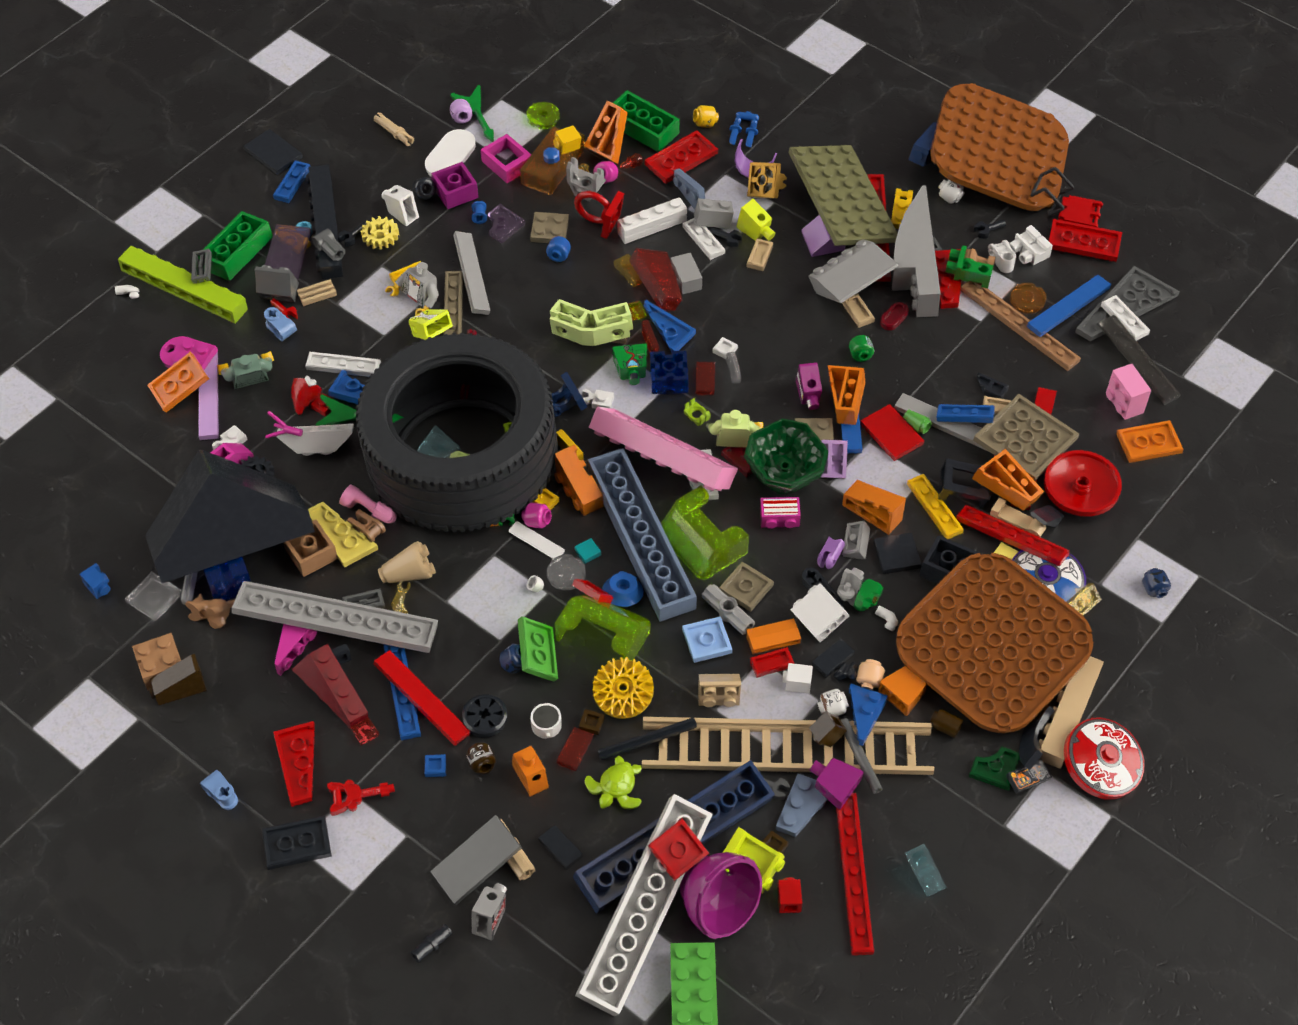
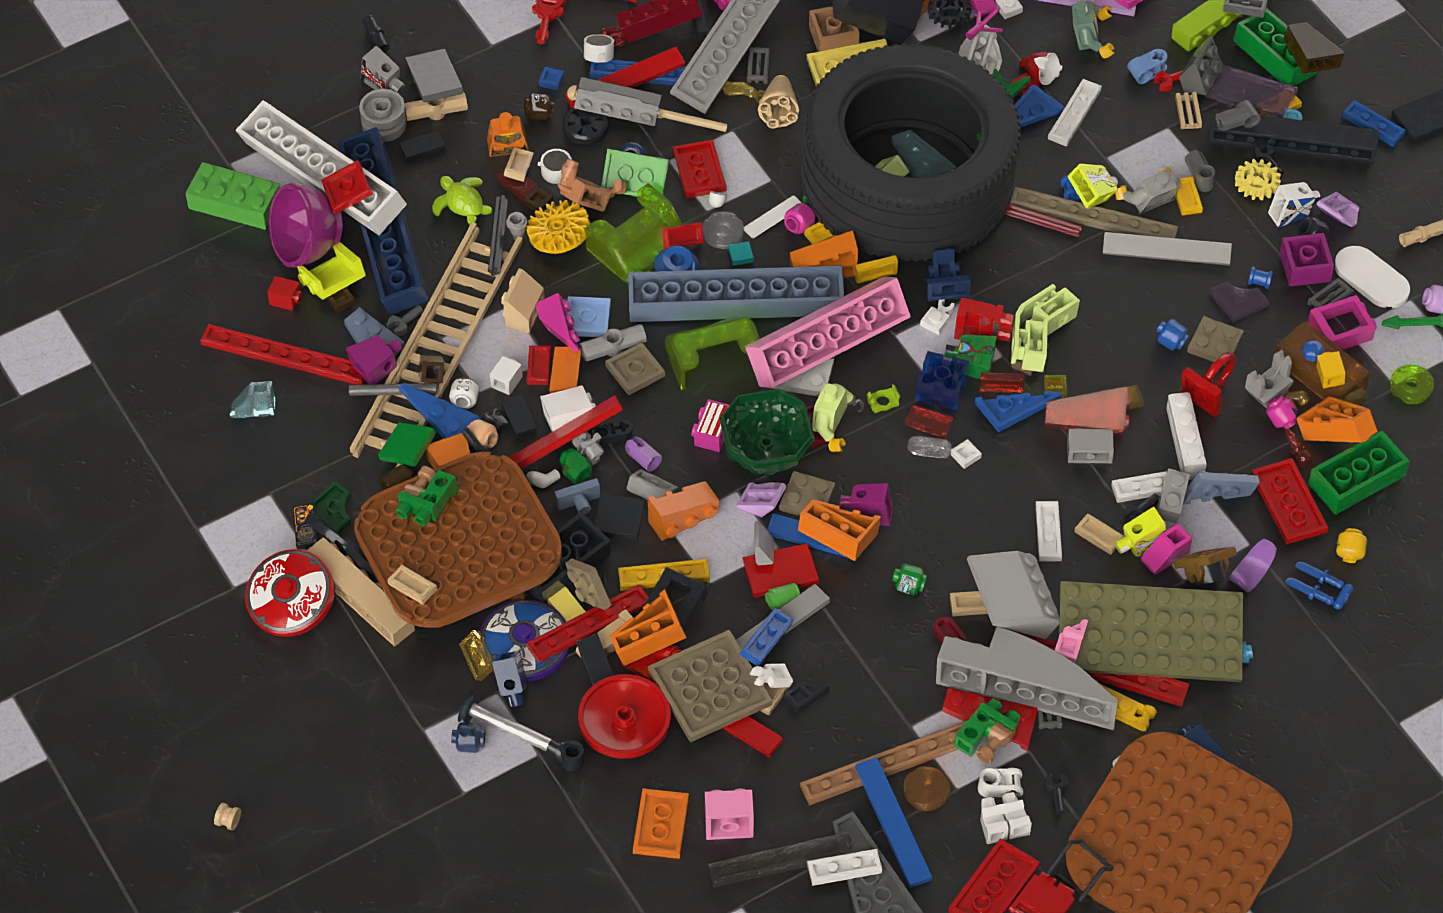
camera: 110 degrees right, 0 degrees up
(242, 212) = (1312, 49): none -> dark brown slope
(382, 268) = (1202, 172): none -> dark grey piece
(388, 181) = (1339, 209): none -> lavender slope
(391, 729) = (598, 48): none -> white piece
(457, 679) = (628, 104): none -> piece
(478, 176) = (1344, 287): none -> dark grey tile
(502, 611) = (699, 168): none -> red tile
(541, 889) = (385, 111): none -> light grey wheel
(557, 750) = (518, 164): none -> tan tile
(575, 678) = (585, 192): none -> nougat torso
(600, 359) = (982, 319): none -> red hips
(634, 720) = (517, 225): none -> light grey cone
(727, 654) = (557, 319): none -> dark pink slope
(765, 202) = (1166, 548): none -> dark pink slope
(772, 283) = (1048, 531): none -> white tile
(852, 602) = (567, 432): none -> red tile
(882, 228) = (1070, 640): none -> bright pink slope
(882, 444) = (763, 545): none -> light grey slope
(886, 671) = (470, 437): none -> black bar
(895, 583) = (578, 496): none -> sand blue tile
(912, 722) = (406, 444): none -> green tile
(978, 670) = (426, 502): none -> green hips
(986, 540) = (587, 584): none -> dark tan plate
(997, 398) = (774, 674): none -> white plate
(1061, 651) = (412, 584): none -> tan tile
(1095, 563) = (511, 667): none -> torso
(1134, 586) = (471, 708): none -> piece

